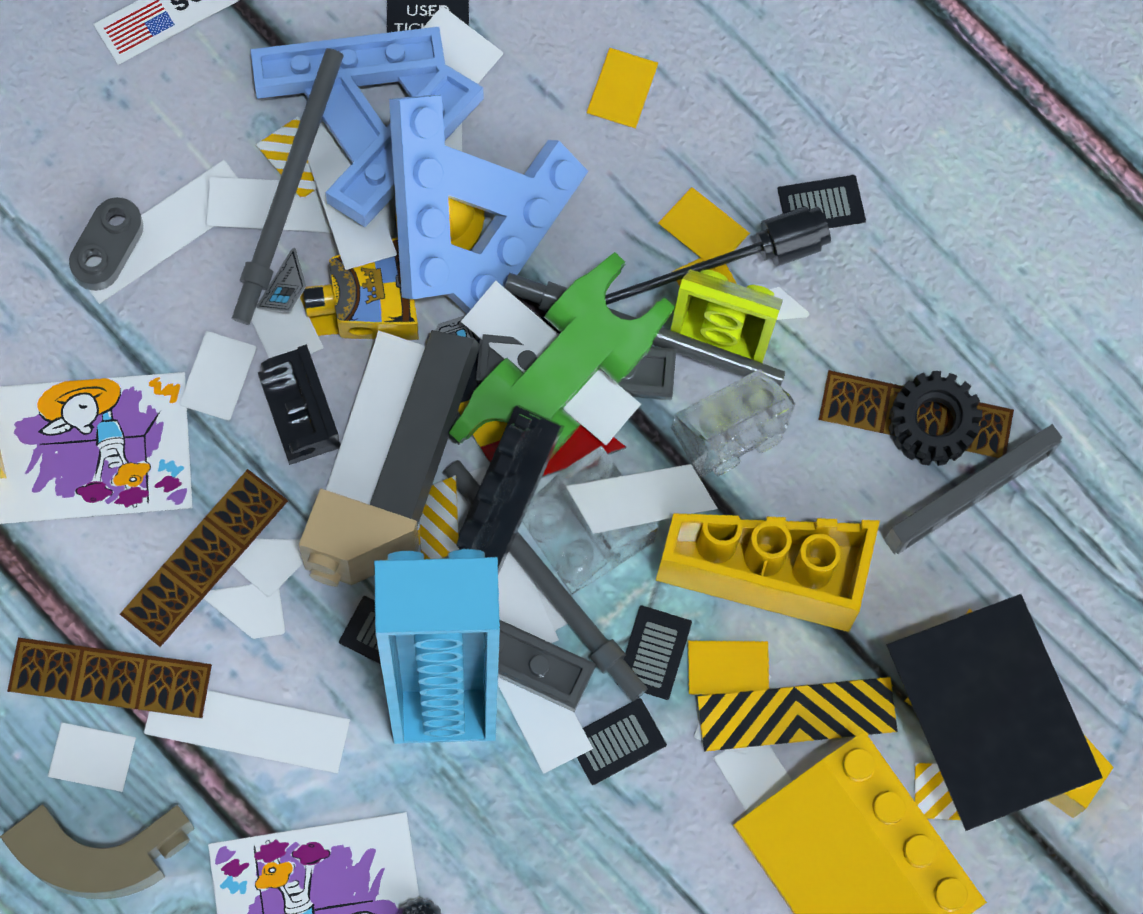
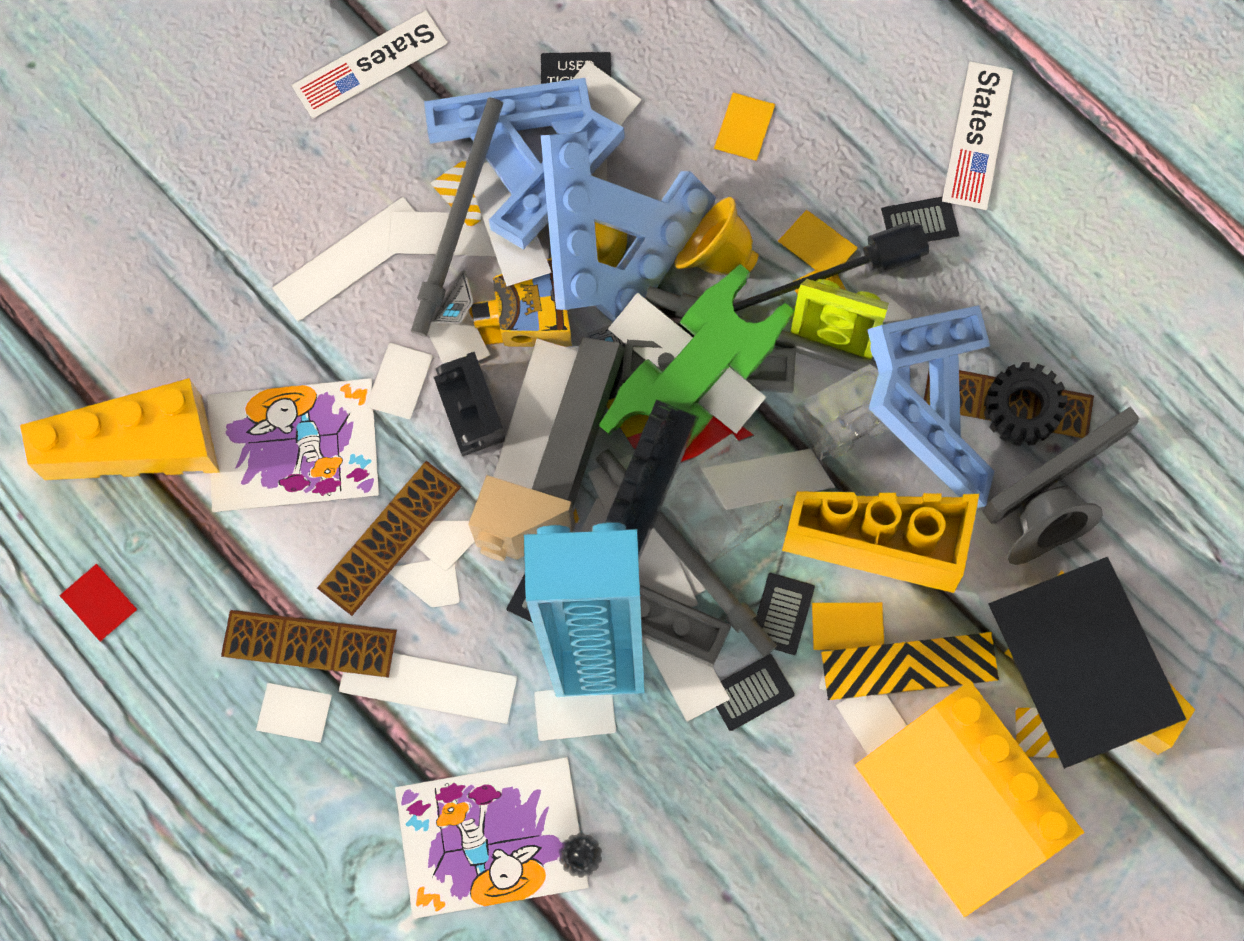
camera: 10 degrees right, 0 degrees up
(95, 872) = (260, 801): dark tan arch -> none
(107, 241) = (303, 267): dark grey plate -> none
(413, 765) = (573, 715): none -> white sticker
(440, 520) = (592, 499): sticker -> none
(590, 224) = (719, 242): none -> yellow hat
(829, 447) = (931, 430): none -> light blue plate
(890, 106) = (977, 136): none -> white sticker
(960, 552) = (1050, 521): none -> dark grey piece

